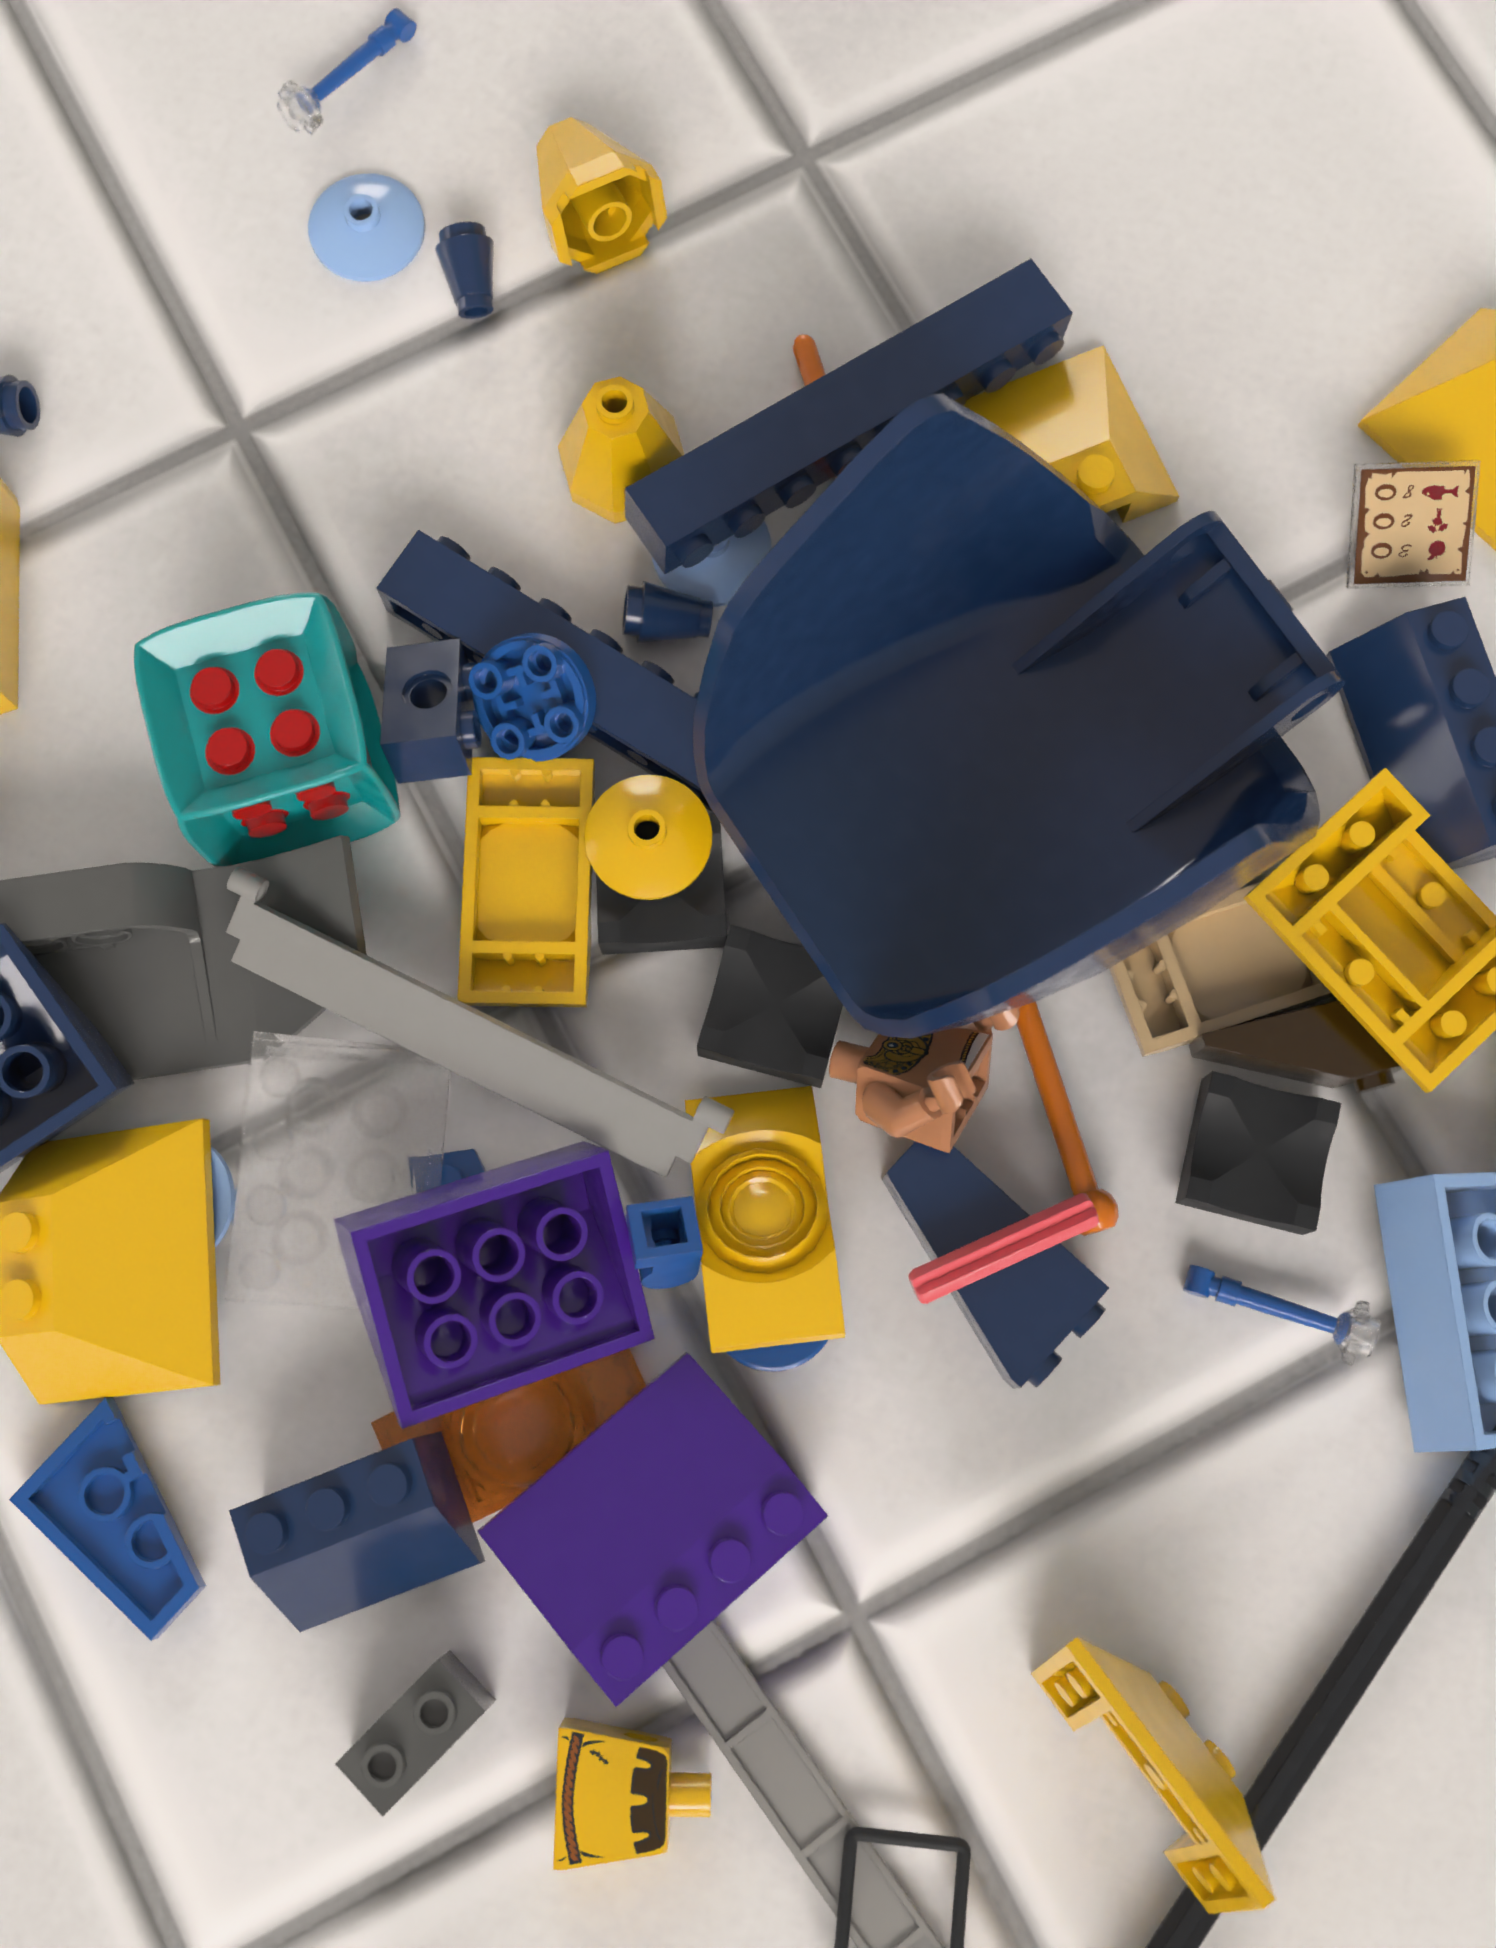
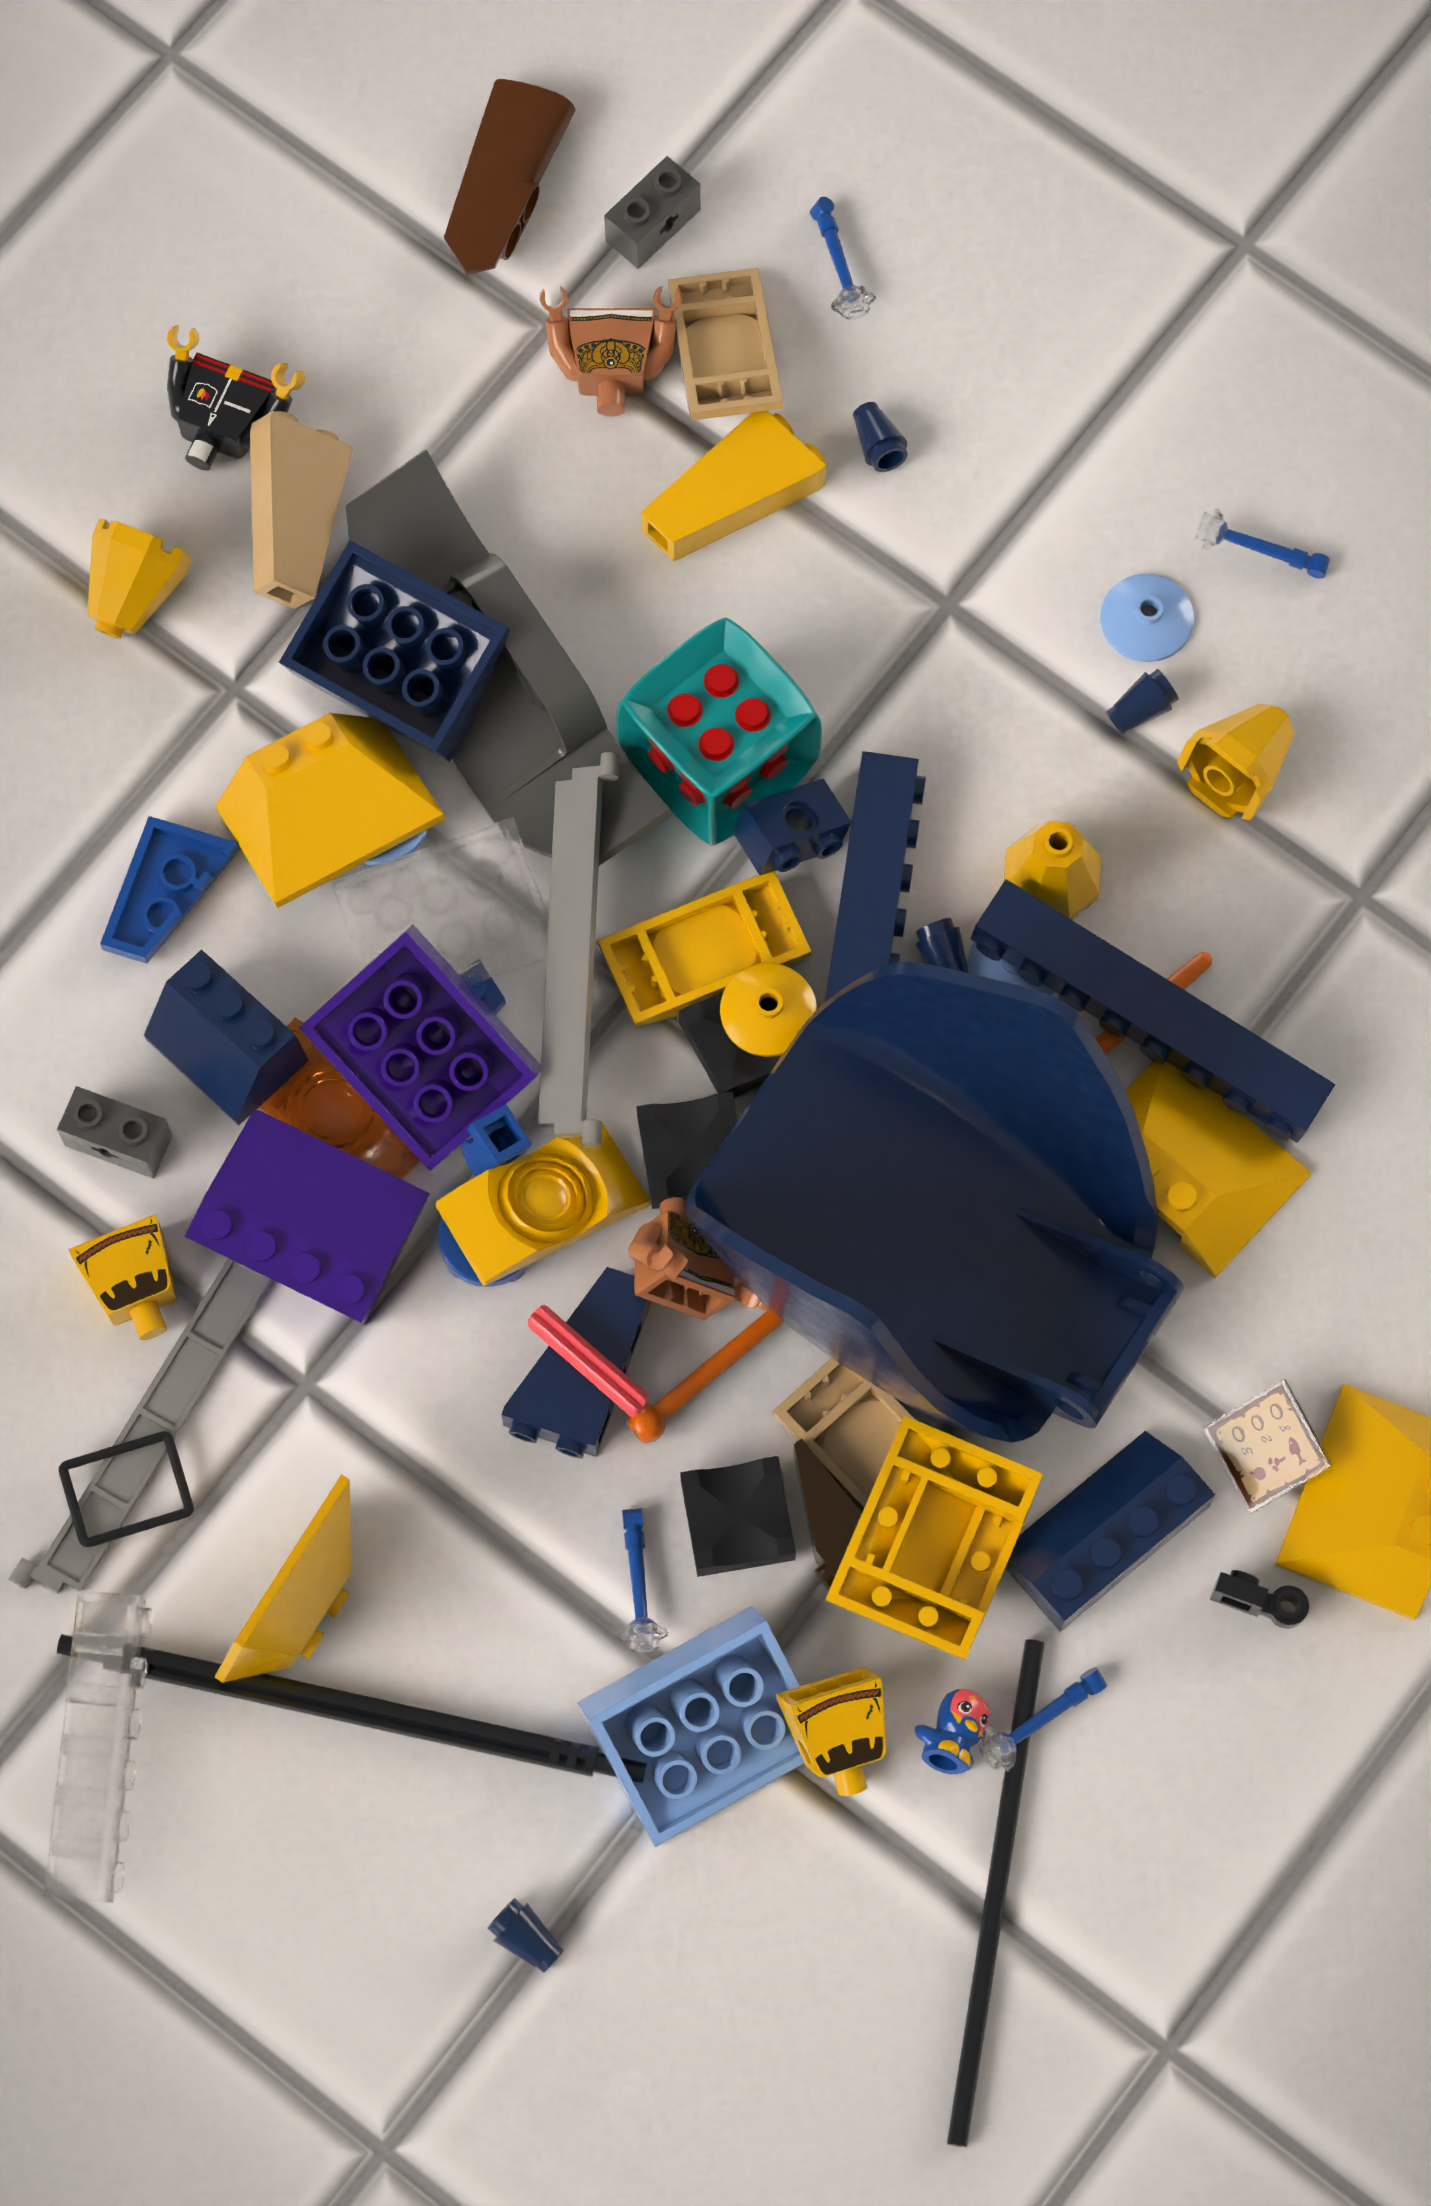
camera: 65 degrees right, 5 degrees down
(533, 697) = (831, 889): blue tile -> none

